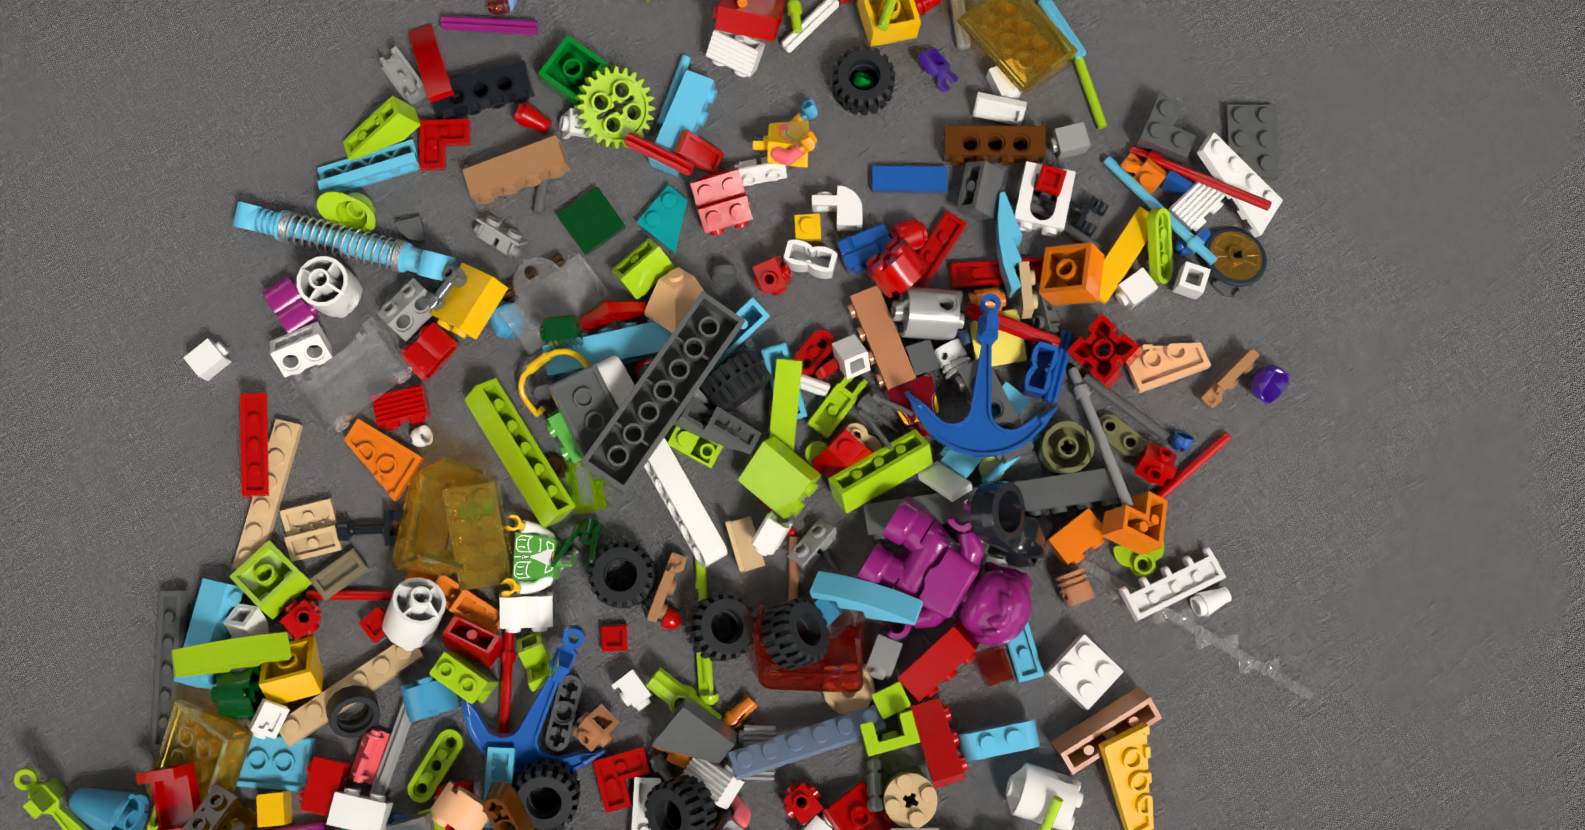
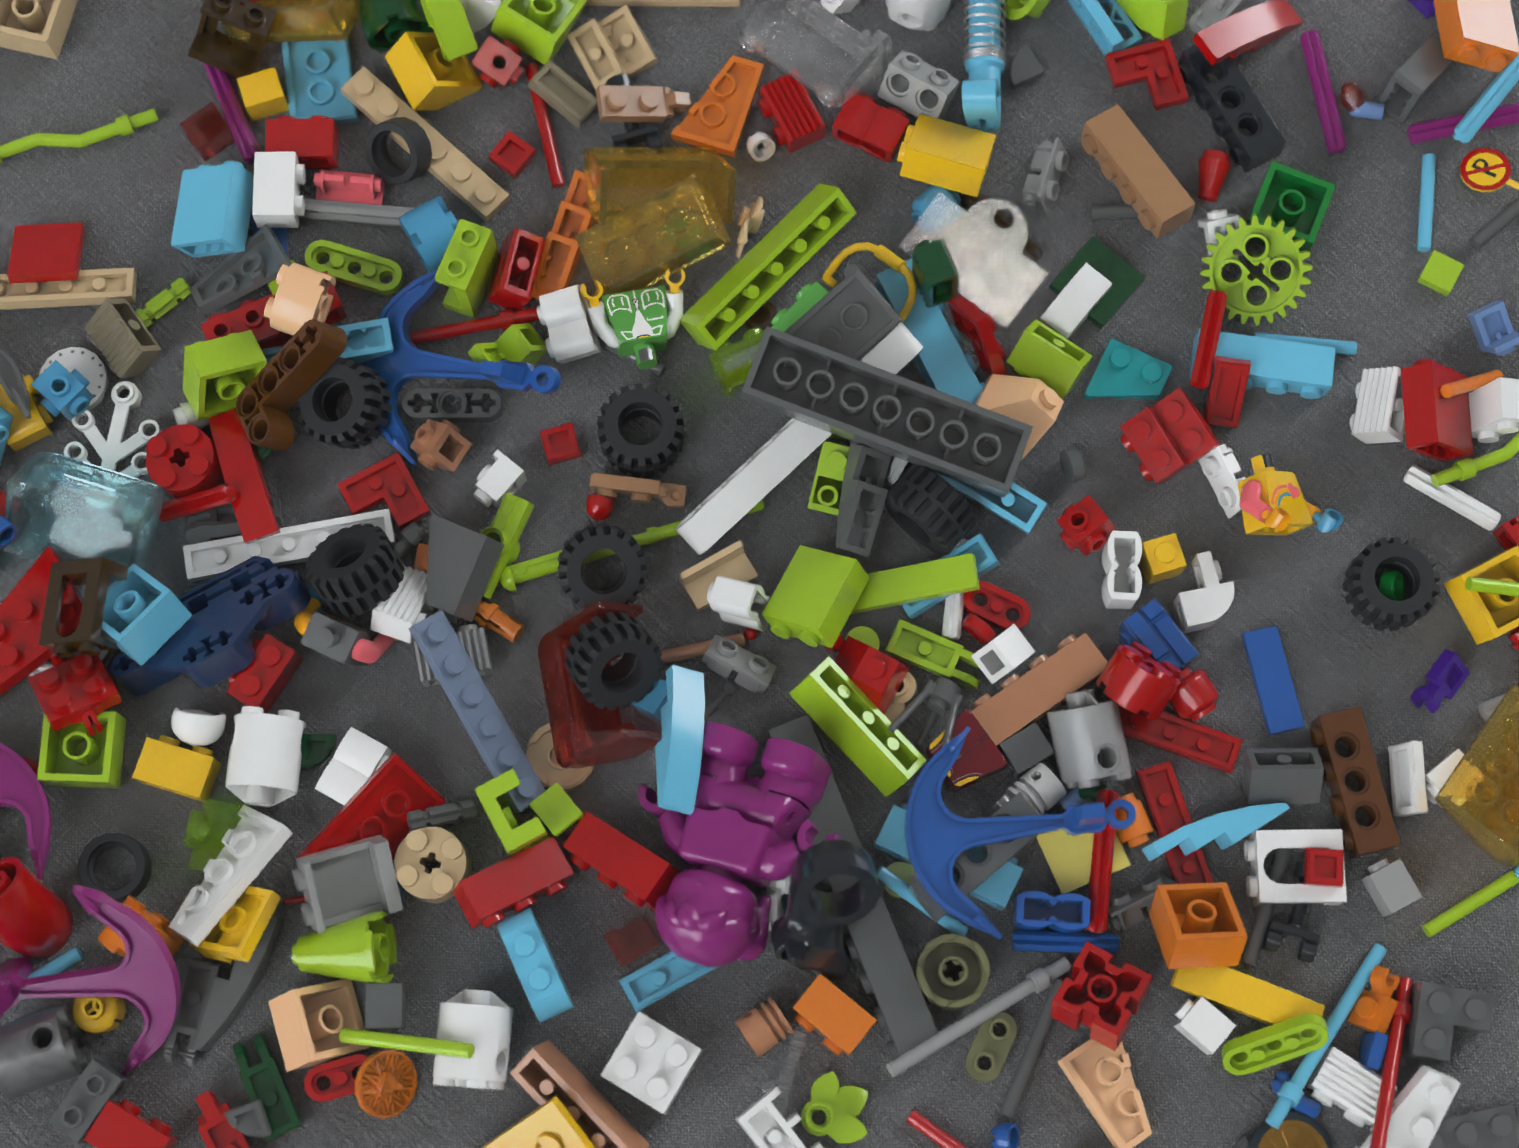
camera: 75 degrees right, 5 degrees down
(267, 719) = (367, 54): white bracket -> none
(363, 518) = (639, 103): none -> medium nougat hinge
(414, 613) = (534, 188): white cylinder -> none
(453, 277) = (972, 124): dark grey bar -> none
(479, 457) = (750, 220): none -> tan plate
(588, 533) = (683, 377): dark green plant -> none
(603, 239) = (1076, 301): none -> white slope
(807, 810) = (392, 716): red brick -> none
(883, 657) = (610, 788): light grey brick -> none
(945, 481) = (865, 815): white tile -> none
(1028, 301) = (1144, 872): tan plate -> none
(1139, 526) = (866, 1093): orange brick -> none
(1156, 464) = (962, 1104): red brick -> none
(1191, 280) = (1237, 1099): white brick -> none

